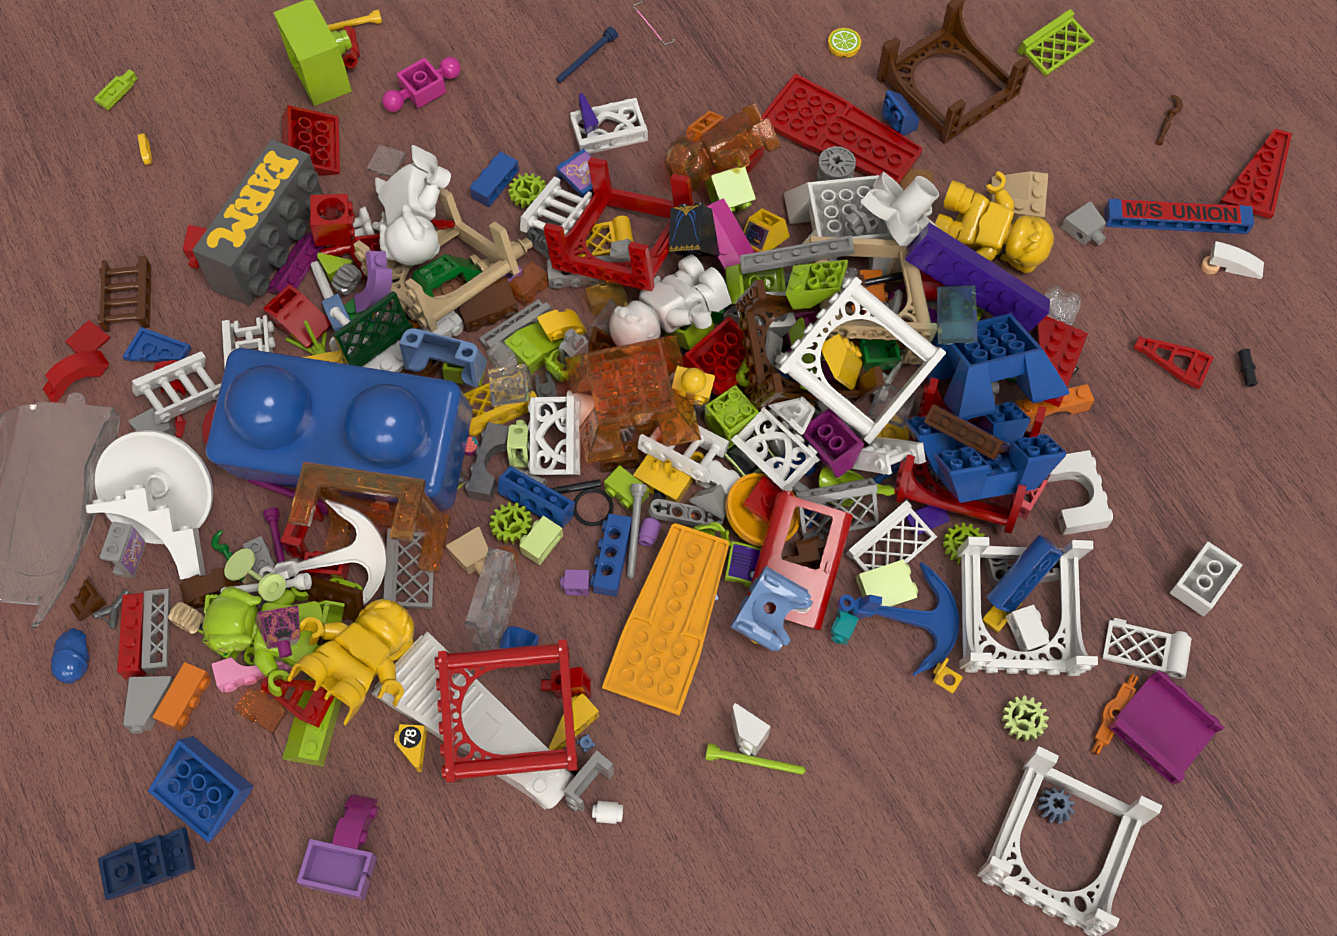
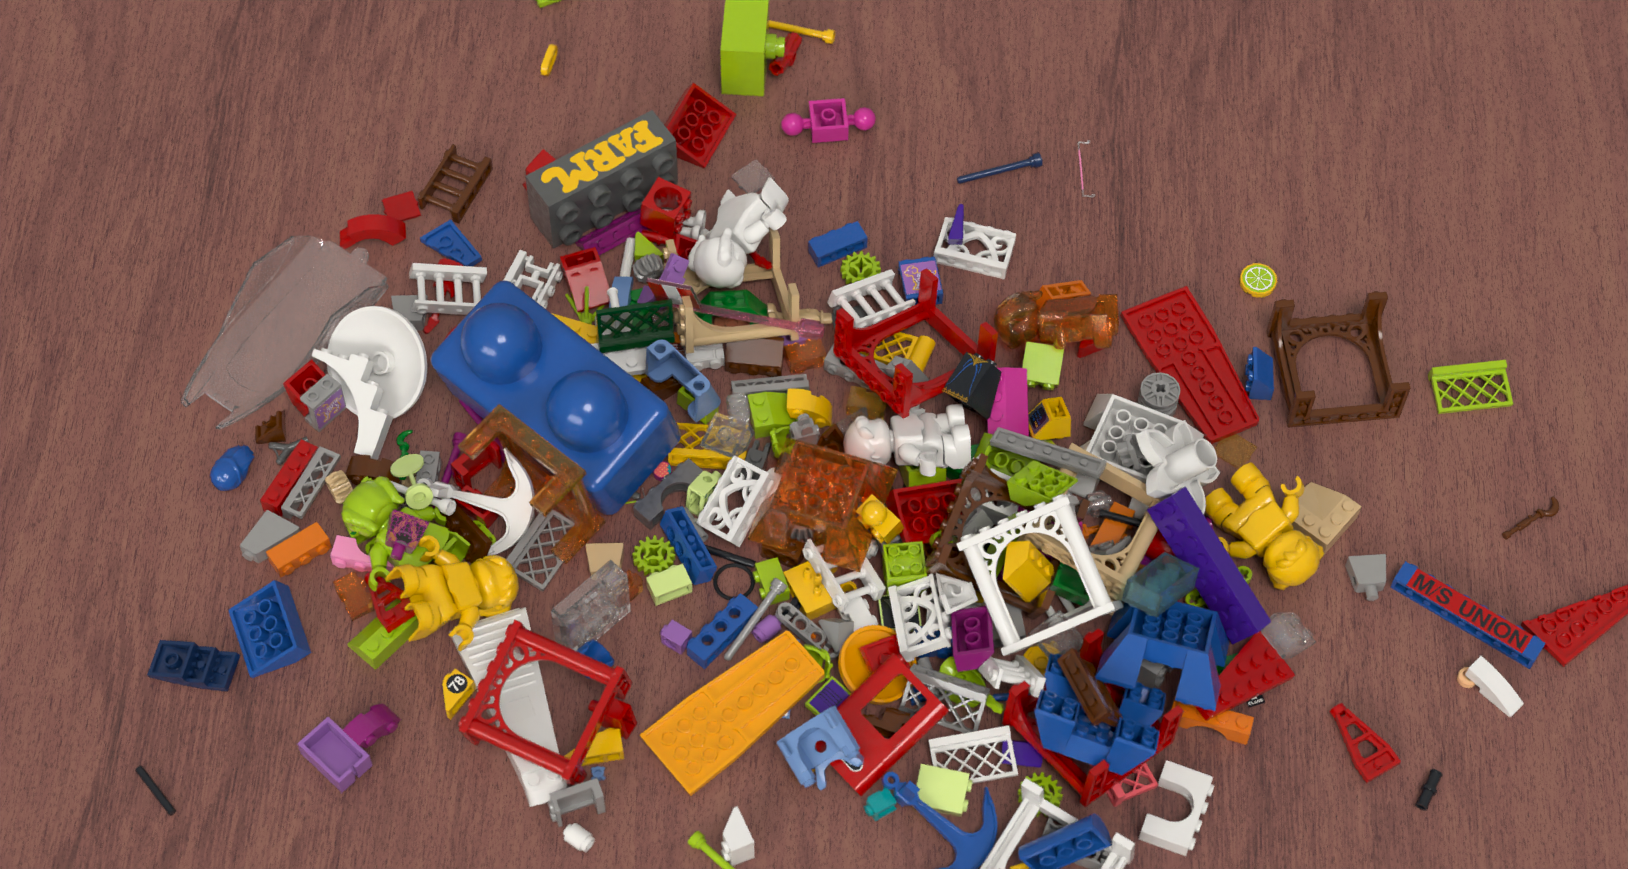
camera: 30 degrees right, 5 degrees down
(92, 543) = (301, 382): none -> red slope
(394, 281) = (668, 290): none -> clear pink flag

